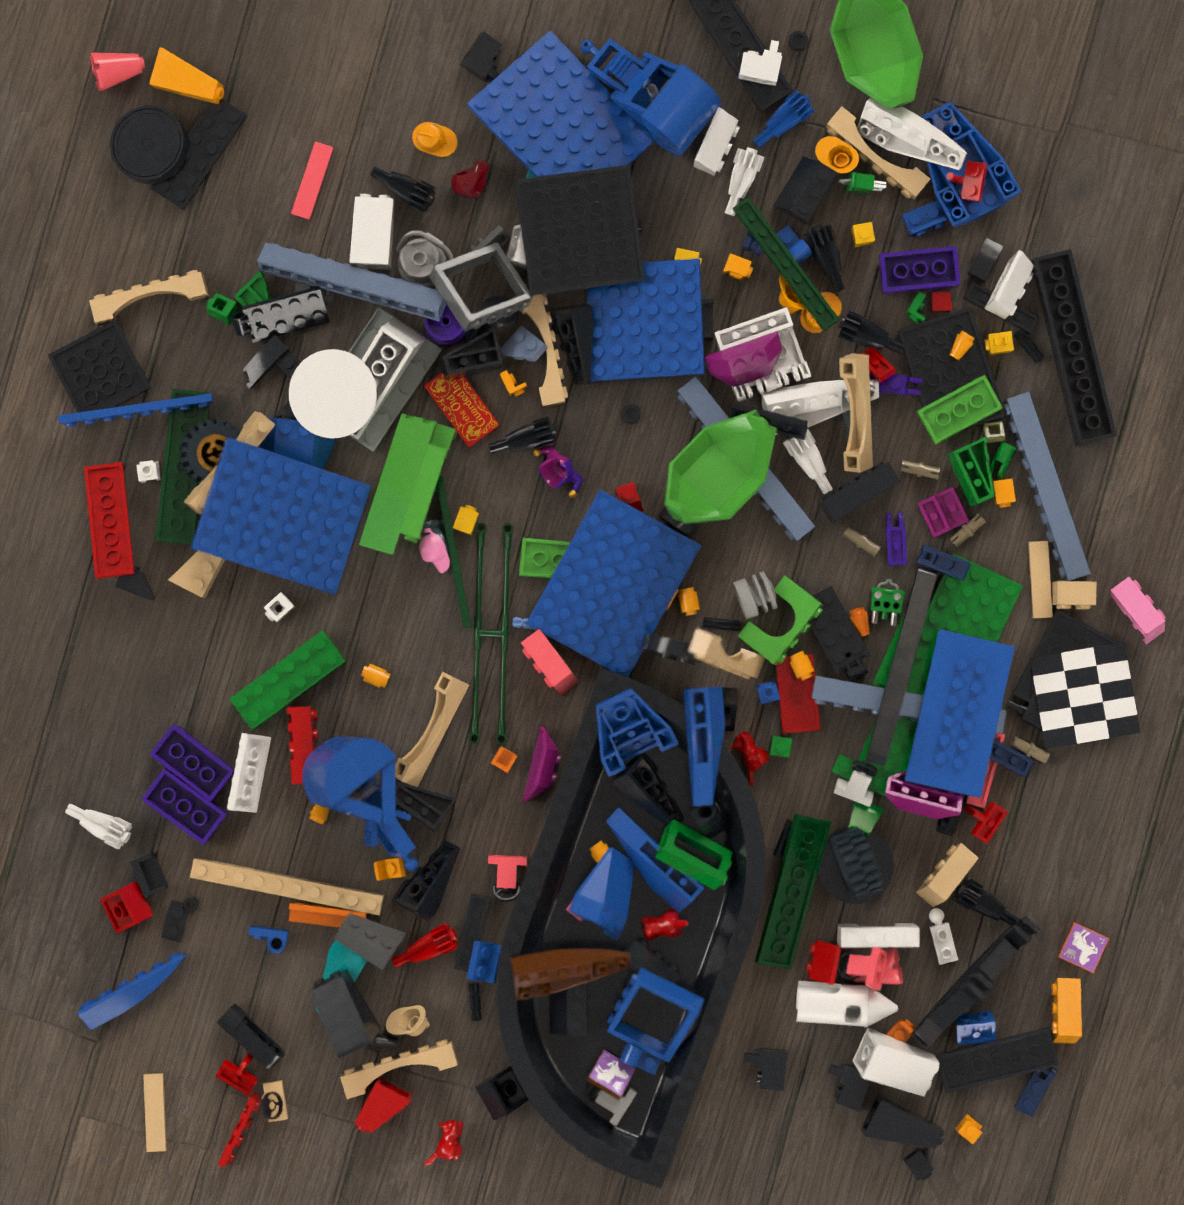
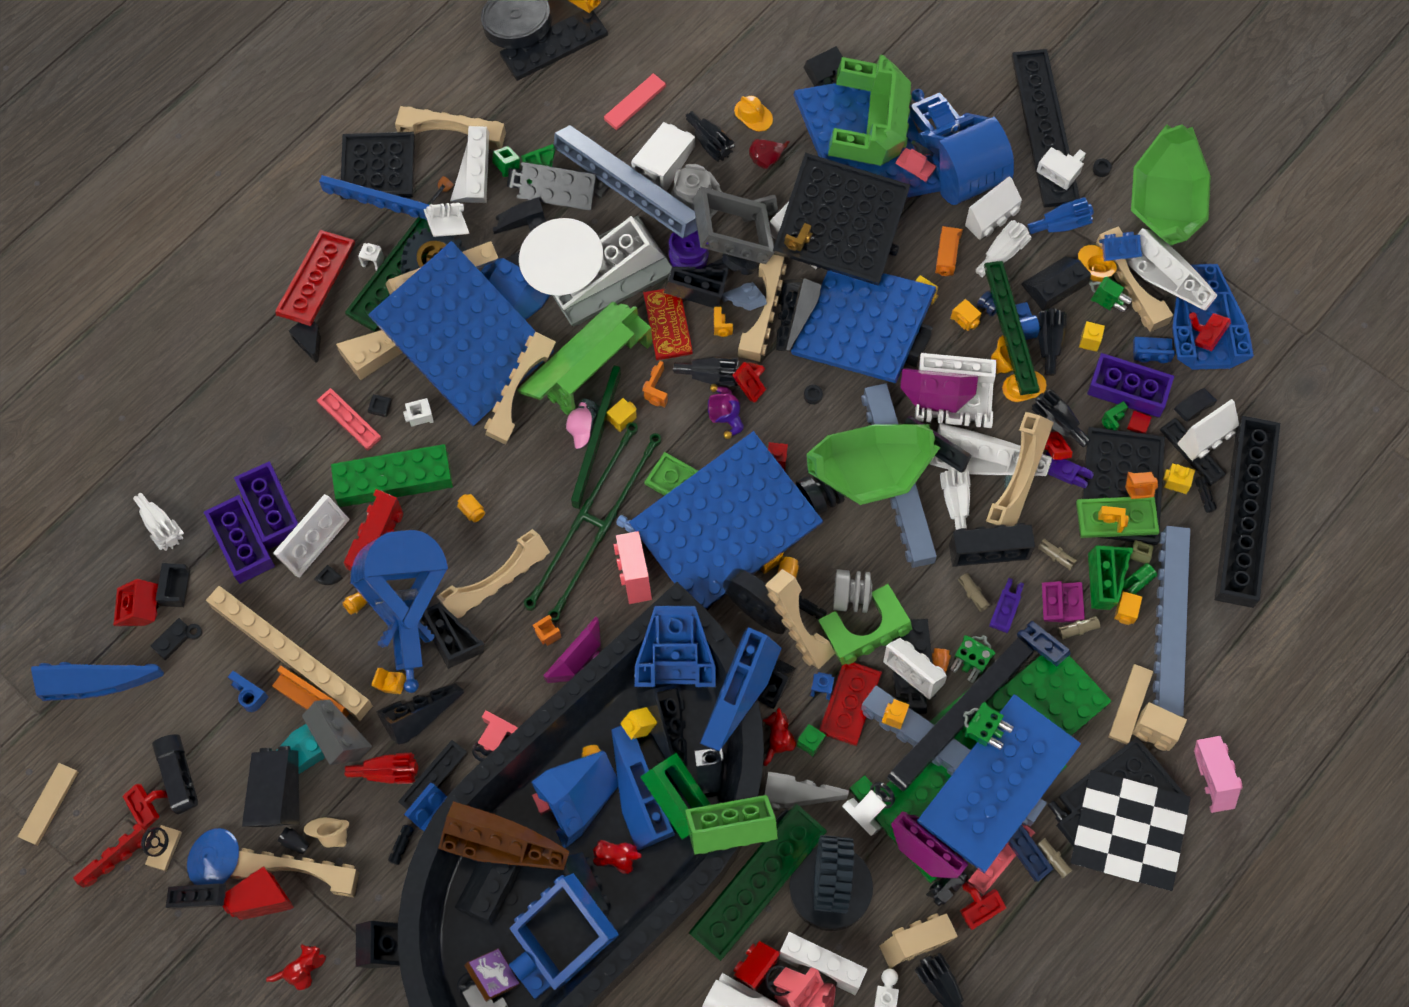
camera: 25 degrees right, 20 degrees down
(175, 362) = (444, 186): none -> dark orange hinge
(198, 340) = (473, 172): none -> white wedge
(207, 411) = (446, 220): none -> white hinge
(216, 642) = (349, 419): none -> coral tile
(237, 615) = (379, 405): none -> black tile
(281, 798) = (328, 576): none -> black tile
(323, 1090) = (213, 857): none -> blue hat
(331, 1131) = (196, 896): none -> black plate
(359, 497) = (538, 350): none -> tan arch
(487, 488) = (652, 394): none -> orange bracket
(555, 272) = (803, 237): none -> pearl gold bracket
(568, 433) = (748, 379): none -> red plate
(570, 92) = (886, 114): none -> bright green wedge
(621, 129) = (916, 162): none -> coral piece
(628, 807) = (638, 723): none -> yellow brick
(690, 206) = (948, 251): none -> orange window
(752, 863) = (731, 824): none -> bright green slope
(783, 801) = (785, 791): none -> light grey wedge
(801, 665) = (866, 674): light orange brick -> none
(843, 642) = (914, 667): none -> white slope
(845, 696) = (895, 714): none -> light orange brick
(853, 130) = (1121, 247): none -> blue bracket
(865, 817) = (864, 844): green piece -> none
(921, 672) = (983, 719): none -> green piece
(954, 416) = (1113, 515): none -> light orange bracket
(961, 345) = (1143, 461): light orange cone -> none
(969, 371) = (1141, 485): none -> orange window

